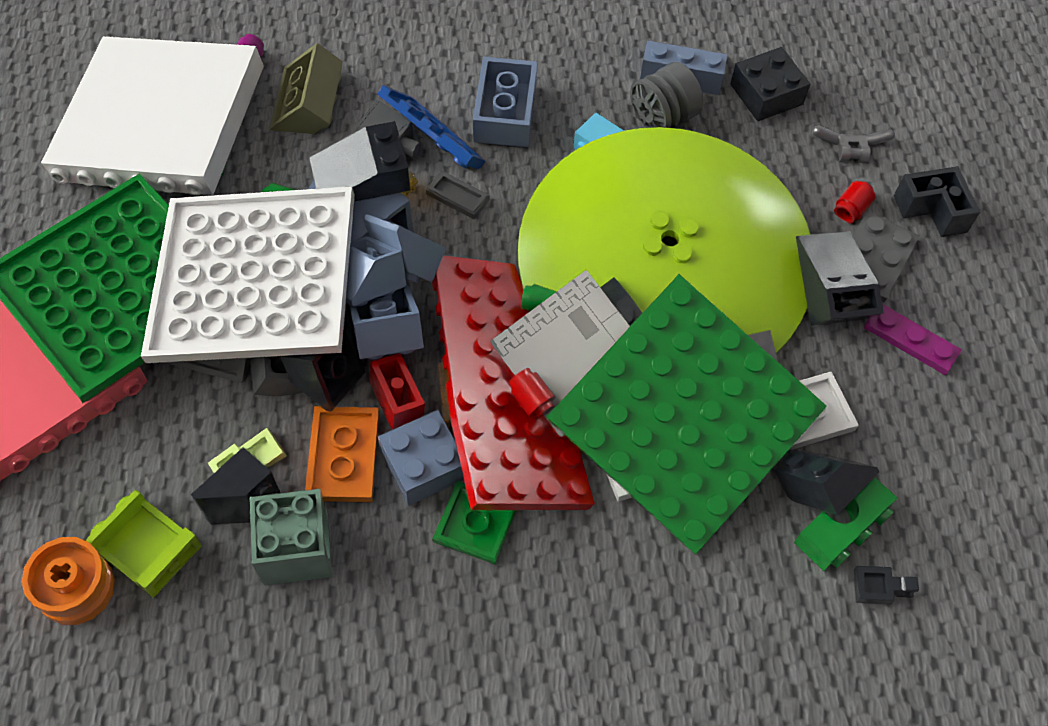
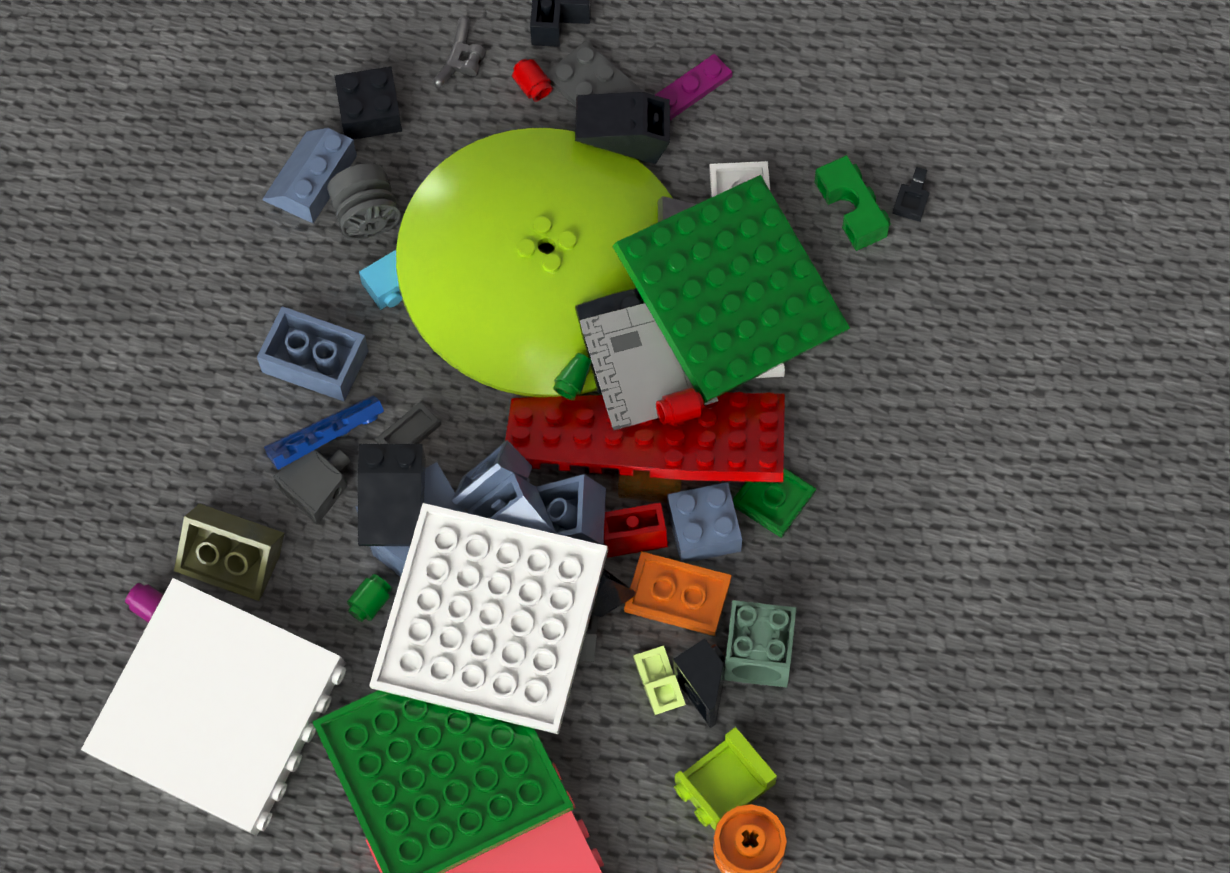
camera: 70 degrees left, 5 degrees up
(823, 479) = (816, 203): black slope -> none

